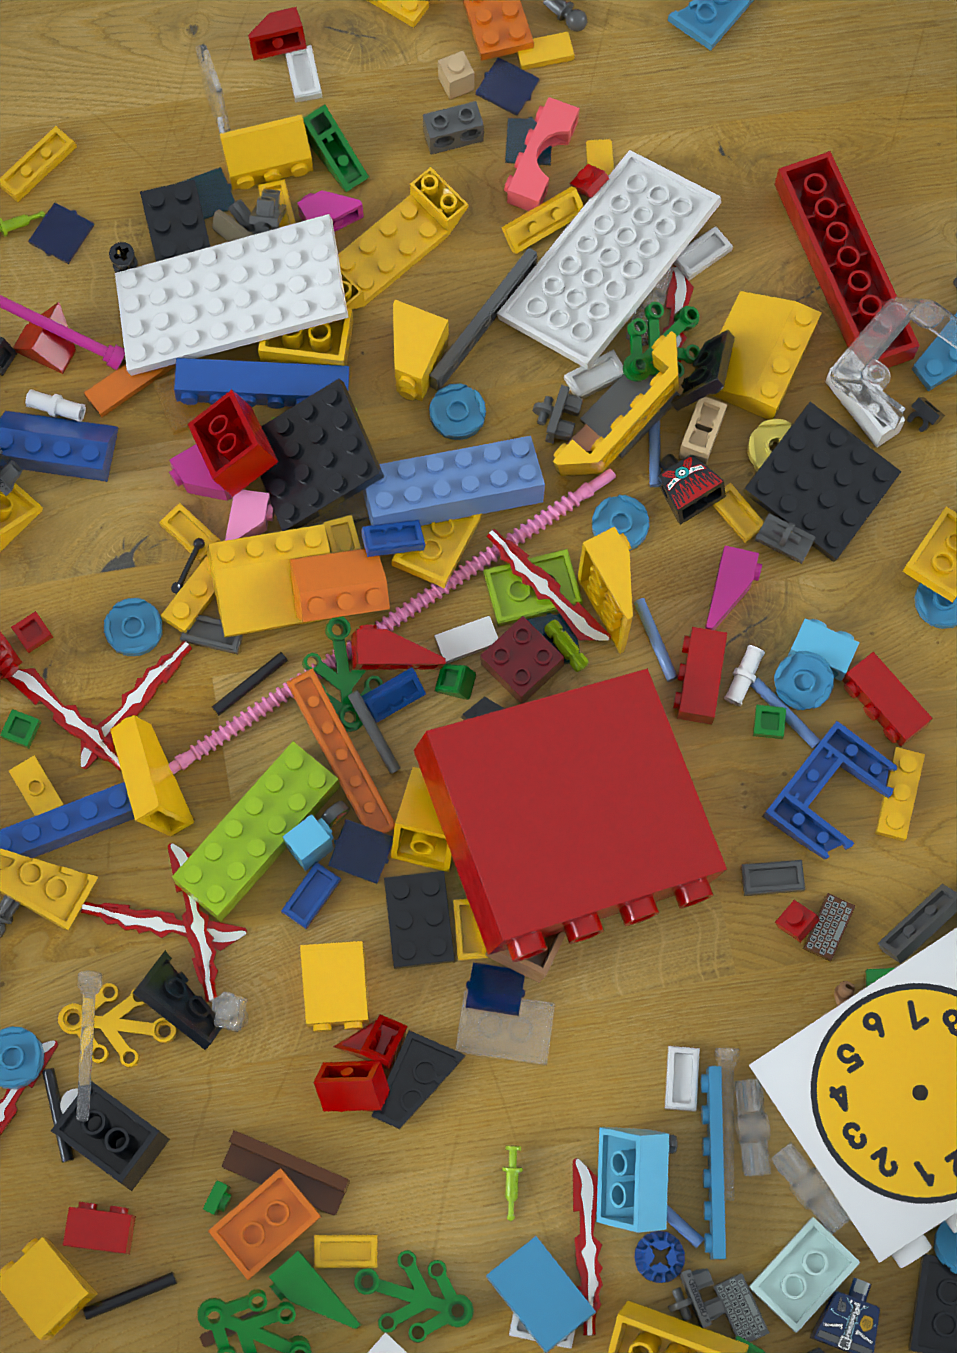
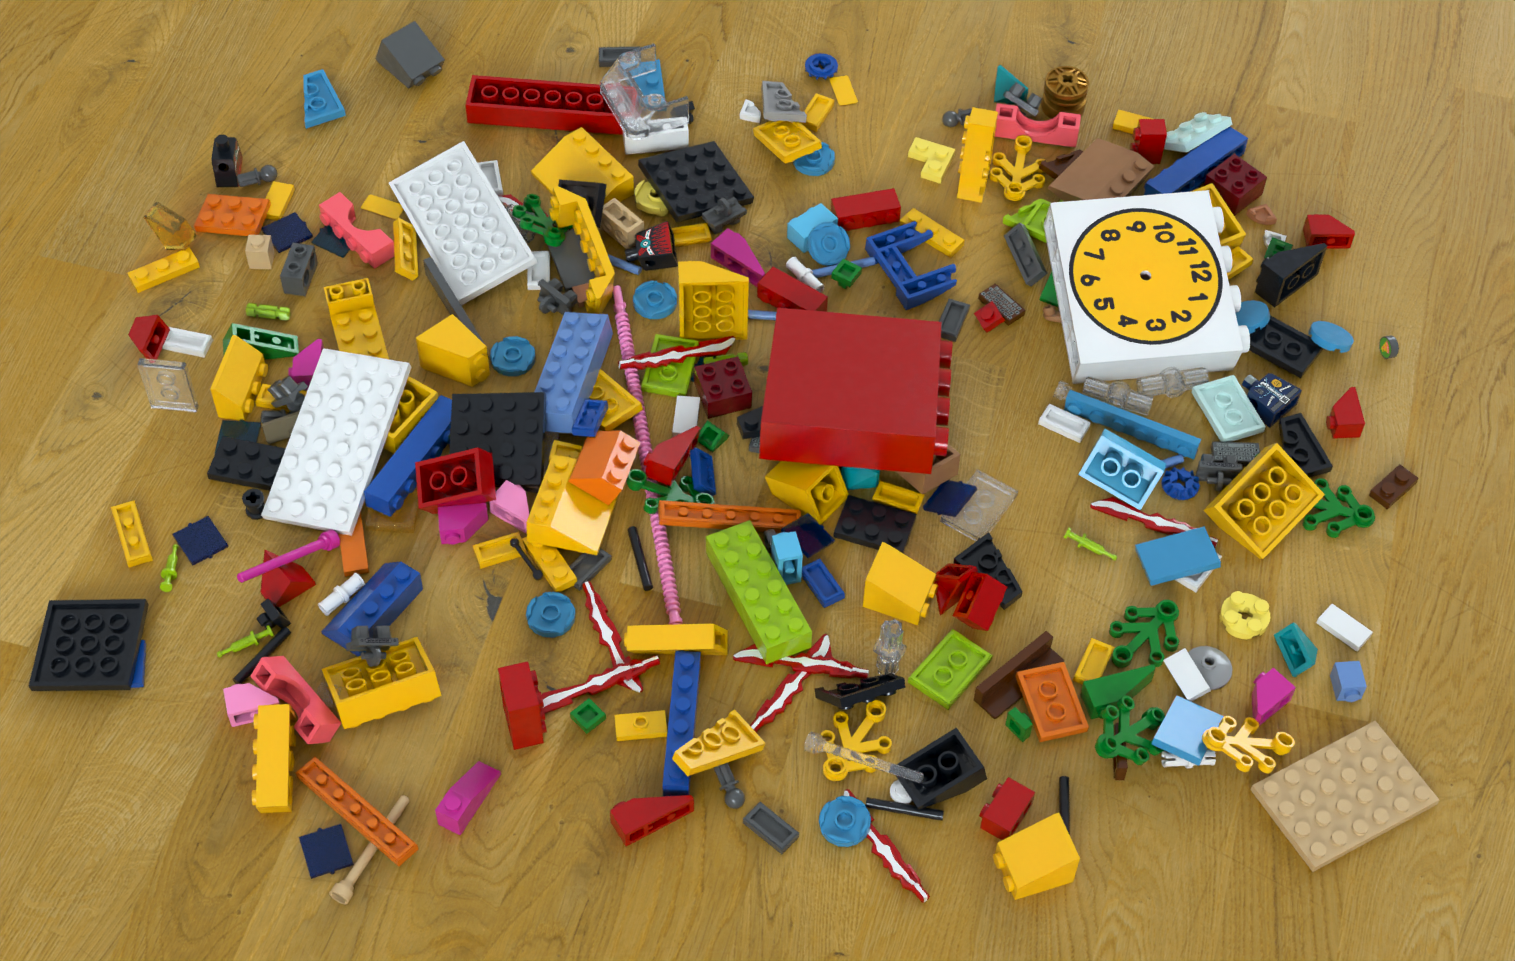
camera: 65 degrees left, 20 degrees down
(262, 1089) = (950, 669): none -> lime tile
(374, 732) = (724, 492): dark grey bar -> none
(384, 129) = (268, 311): none -> lime axle
(589, 180) = (394, 210): red plate -> none
(831, 69) = (410, 55): none -> dark grey slope

